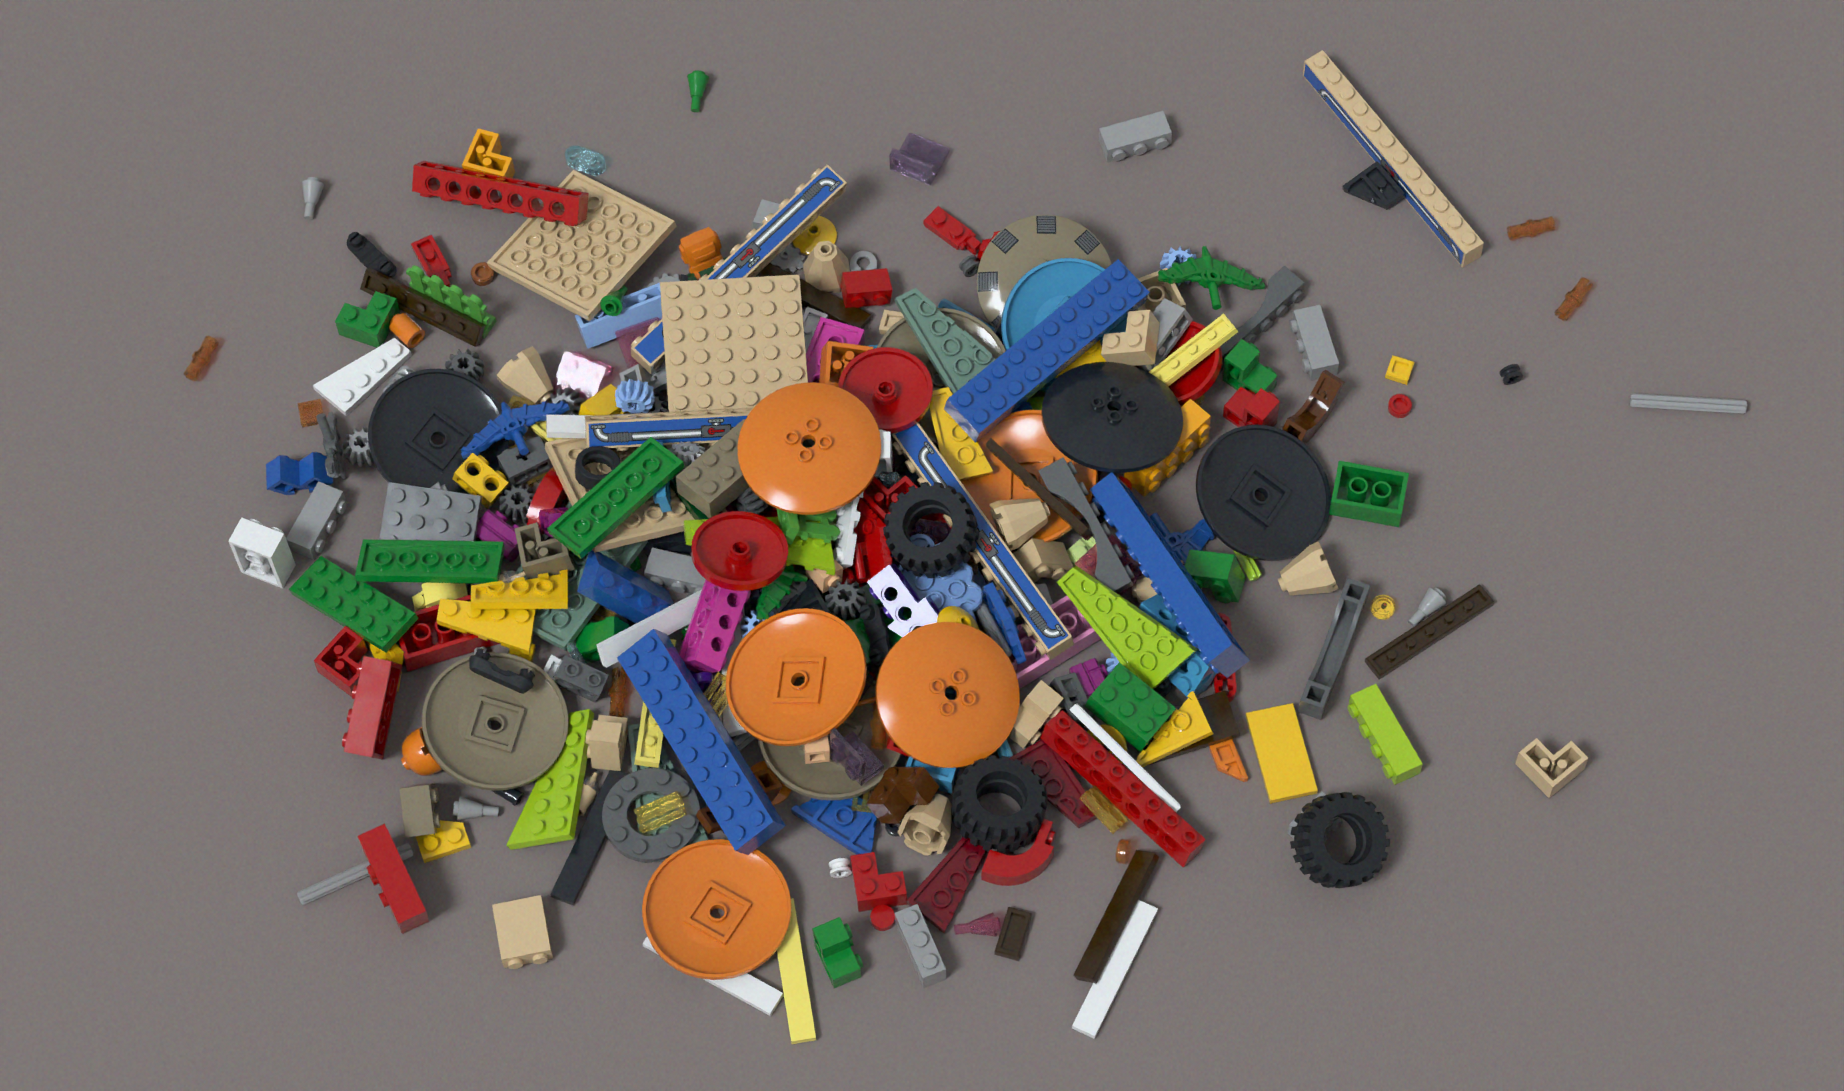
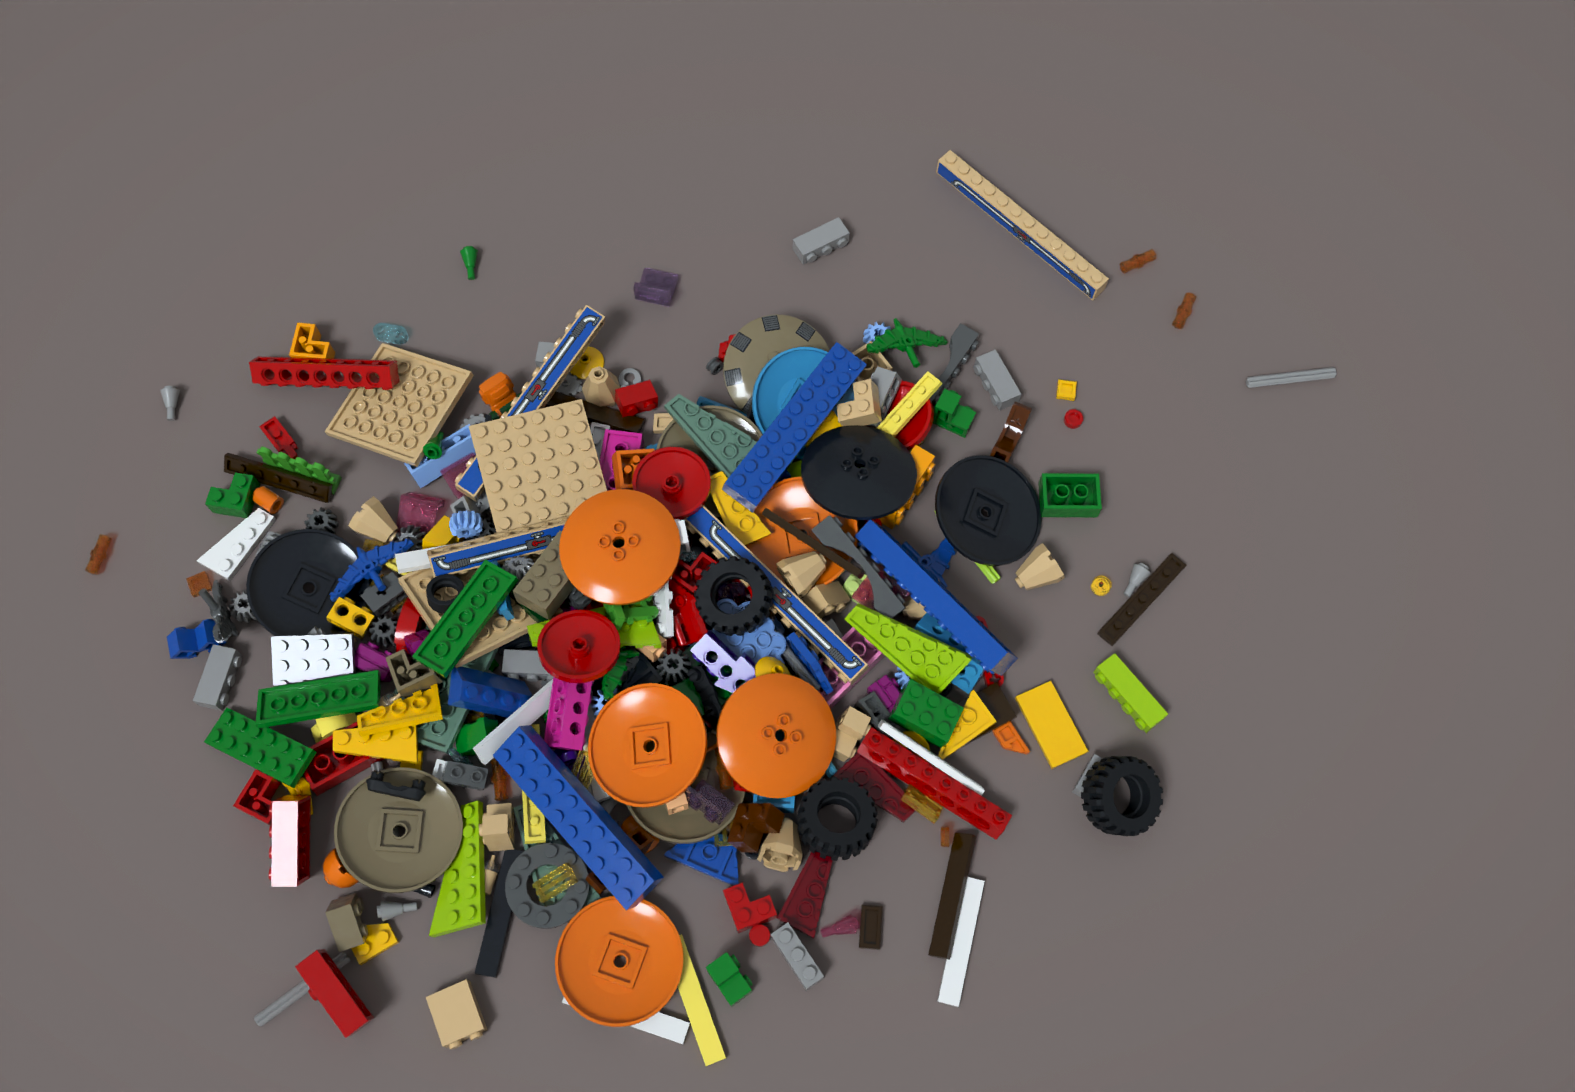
camera: 15 degrees left, 5 degrees up
(262, 552) = (173, 717): white brick -> none
(369, 255) = (227, 442): black piece -> none
(482, 274) = (323, 441): dark orange tile -> none
(840, 868) = (715, 899): white bush -> none
(951, 231) = (694, 340): red hinge -> none
(1021, 868) = (860, 871): red arch -> none
(1218, 572) = (967, 584): green brick -> none
(1251, 408) = (962, 445): red brick -> none
(1334, 649) = (1072, 633): dark grey arch -> none
(1375, 187) = (1013, 249): black wing -> none
(1511, 374) = (1152, 378): black bush -> none
(1548, 770) = (1268, 699): tan brick -> none

